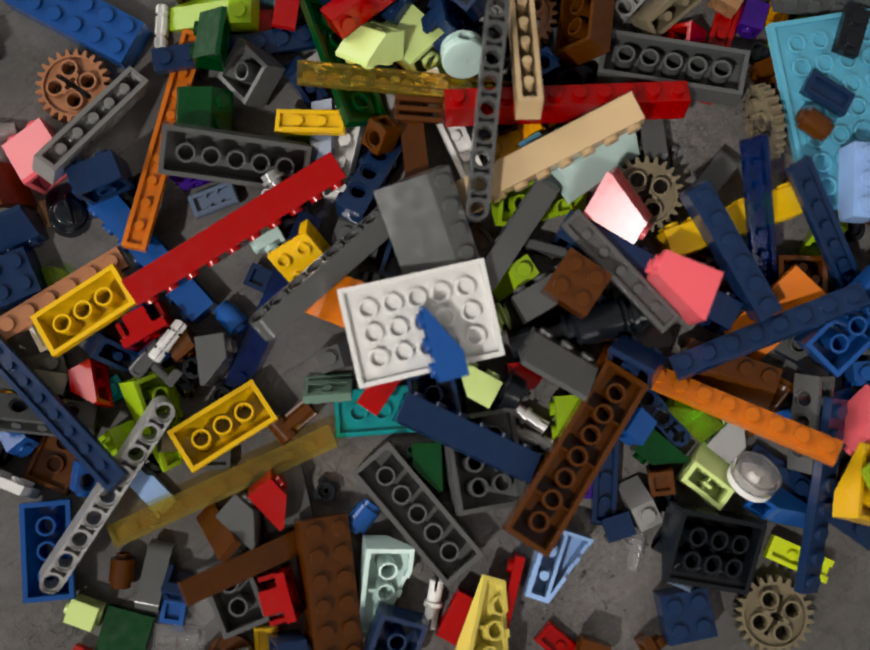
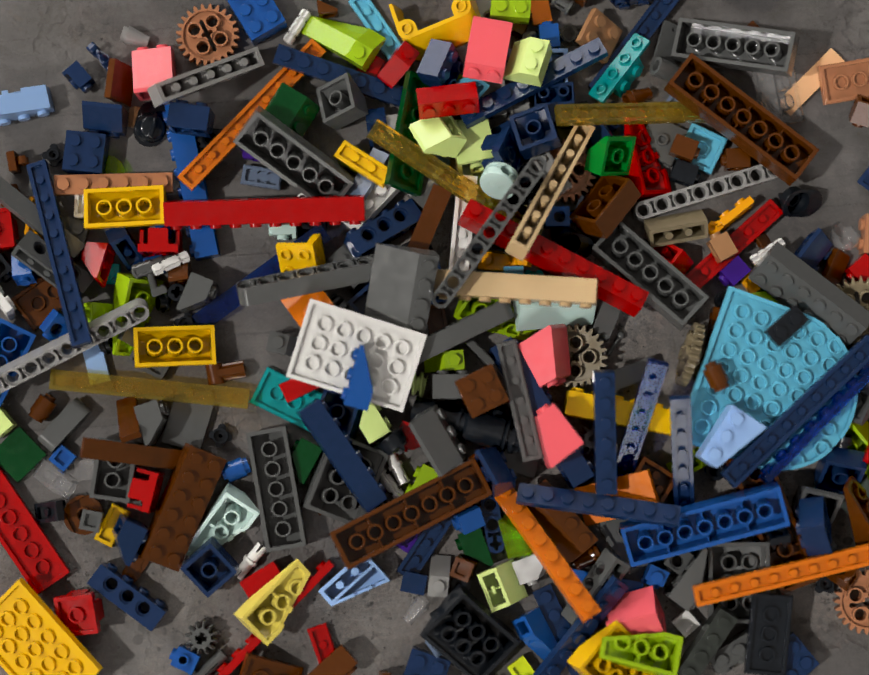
camera: 25 degrees right, 0 degrees up
(170, 589) = (73, 440): dark blue panel -> none
(212, 39) = (326, 64): dark green slope -> none
(231, 317) = (224, 271): blue brick -> none
(258, 277) = (260, 253): dark blue plate -> none
(270, 497) = (179, 416): red slope -> none
(272, 178) = (311, 190): light grey plate -> none
(327, 388) = (264, 363): sand green plate -> none
(381, 134) = (407, 204): reddish brown brick -> none
(417, 99) = (459, 210): reddish brown tile -> none
(754, 477) = (530, 602): clear piece -> none
(827, 93) = (741, 360): dark blue tile -> none

